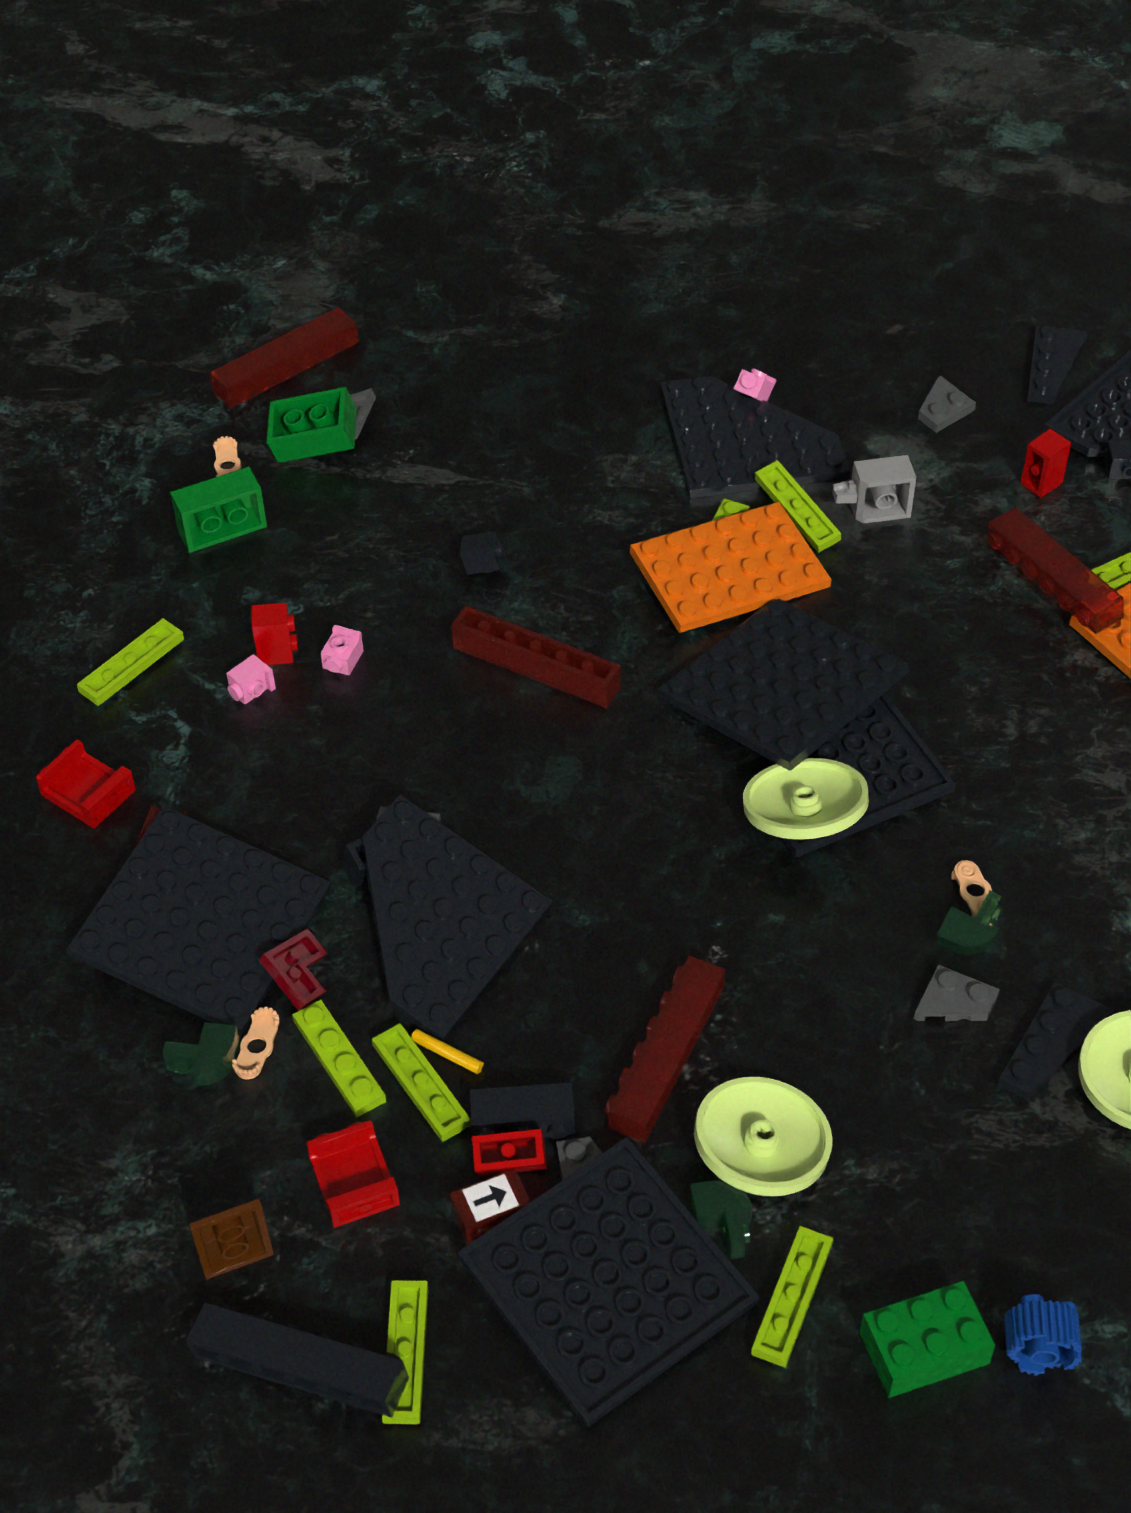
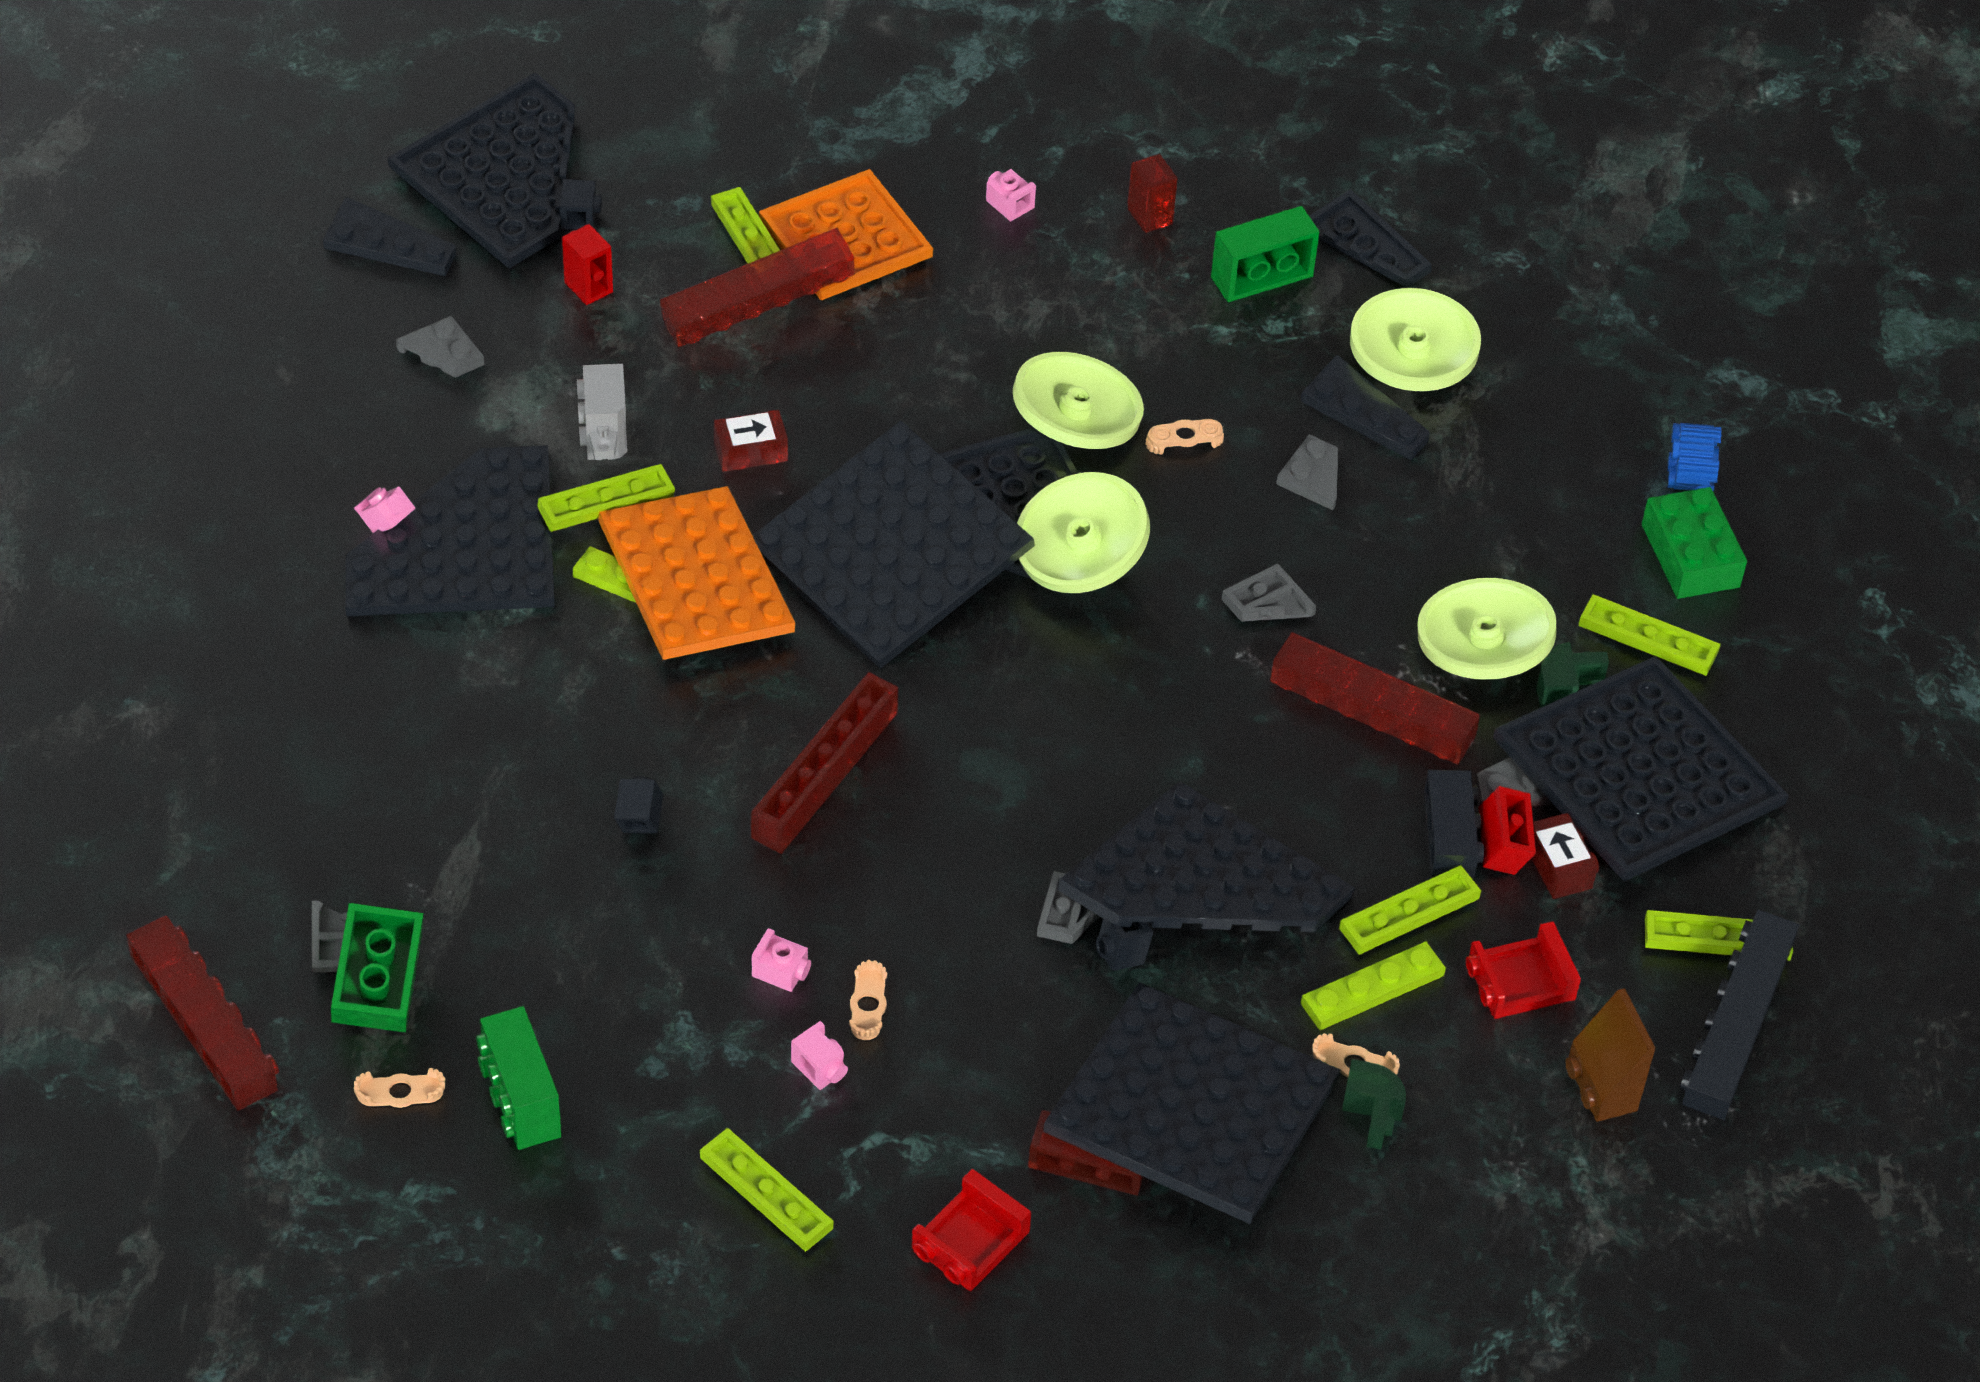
camera: 90 degrees left, 0 degrees up
(273, 633) = (760, 1019): red brick -> none
(289, 968) = (1264, 1016): dark red plate -> none
(292, 711) = (869, 983): none -> light nougat piece
(447, 1051) = (1368, 888): yellow piece -> none
(782, 961) = (1268, 597): none -> dark grey wing
(883, 588) = (750, 440): none -> clear red brick
(970, 934) = (1245, 435): clear green brick -> none
(984, 799) = (1078, 400): none -> yellowish green dish

